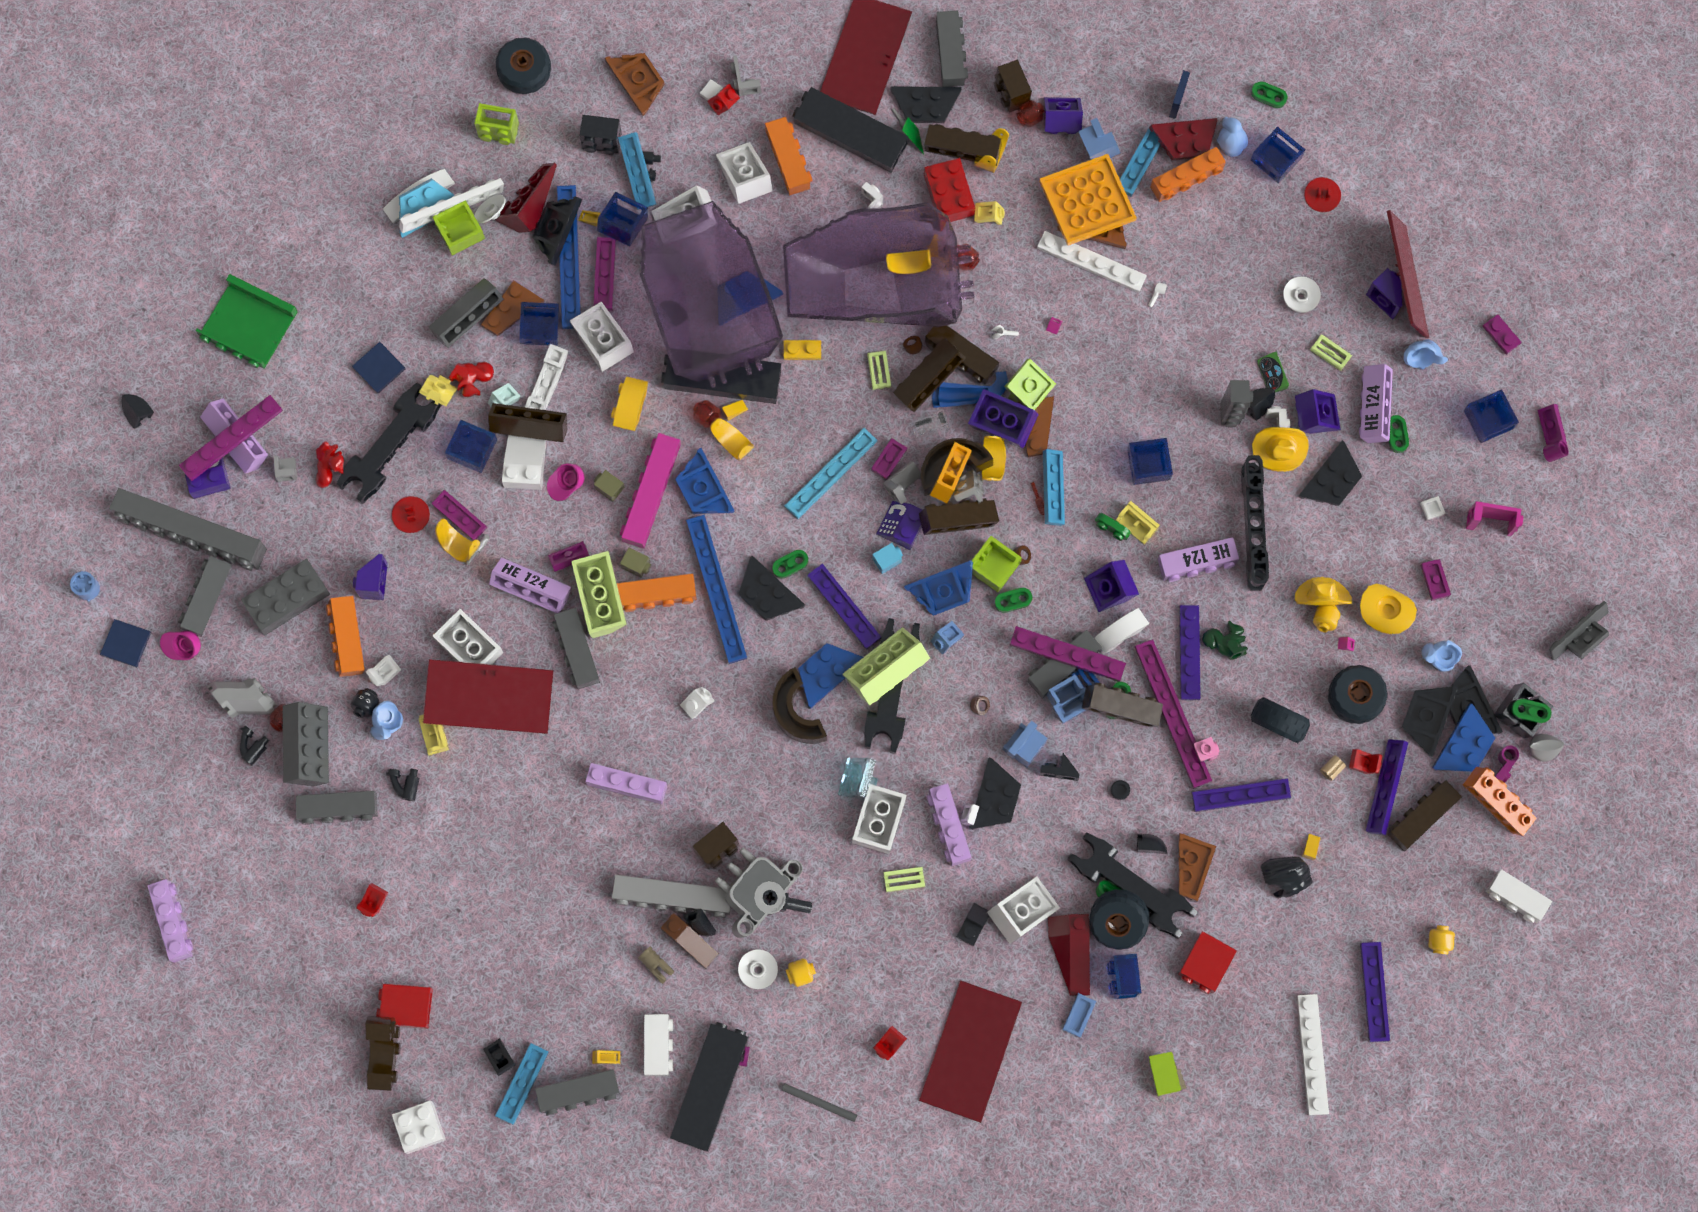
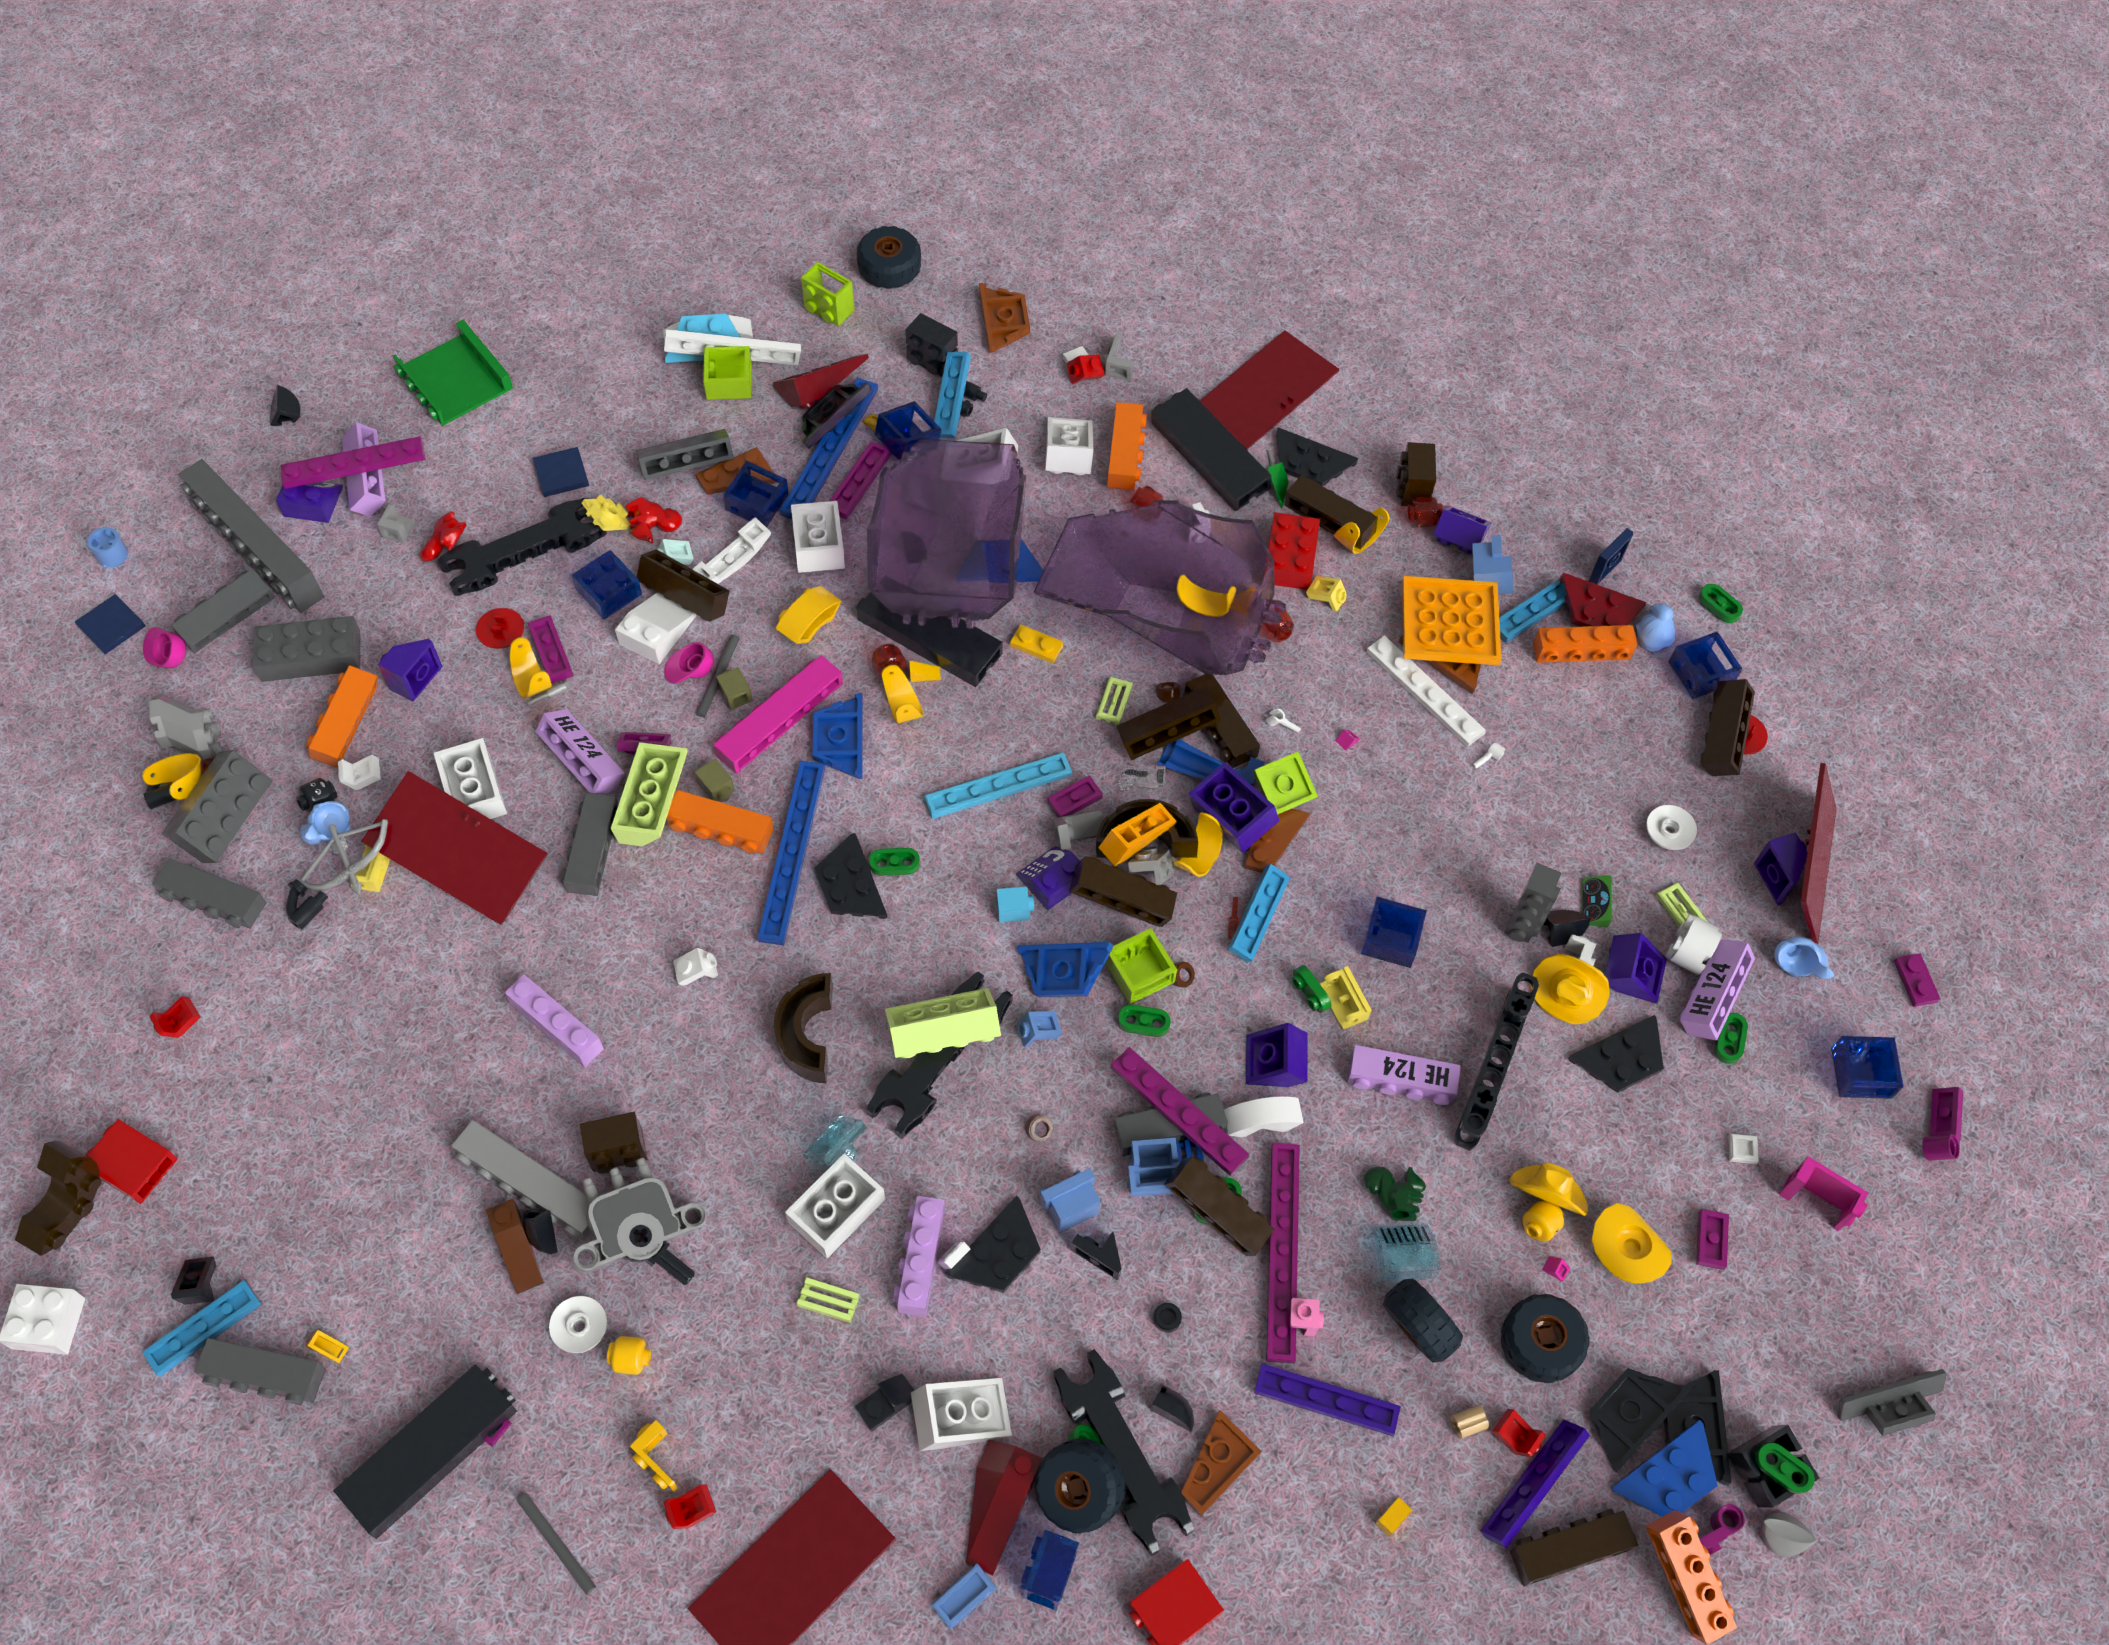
camera: 25 degrees right, 15 degrees down
(258, 727) = (180, 769): none -> yellow piece
(409, 733) = (350, 869): none -> light grey piece
(490, 209) = (774, 372): white dish -> none
(589, 480) = (721, 667): none -> dark grey bar
(653, 961) = (456, 1252): dark tan hinge -> none
(657, 1045) = (395, 1361): white brick -> none
(825, 671) = (863, 1001): blue wing -> none
(826, 197) = (1145, 496): none -> clear red head
(840, 1015) = (647, 1439): none -> yellow bracket
(844, 606) = (932, 937): dark purple plate -> none
(950, 48) = (1364, 415): dark grey brick -> none
(1189, 652) = (1340, 1185): dark purple plate -> none
(1249, 678) = (1406, 1252): none -> clear light blue slope
(1288, 873) = (1344, 1536): black hair -> none
(1312, 199) = (1728, 728): none -> dark brown brick
(1350, 379) = (1694, 944): none -> white brick
(1442, 654) = (1684, 1339): light blue hair -> none

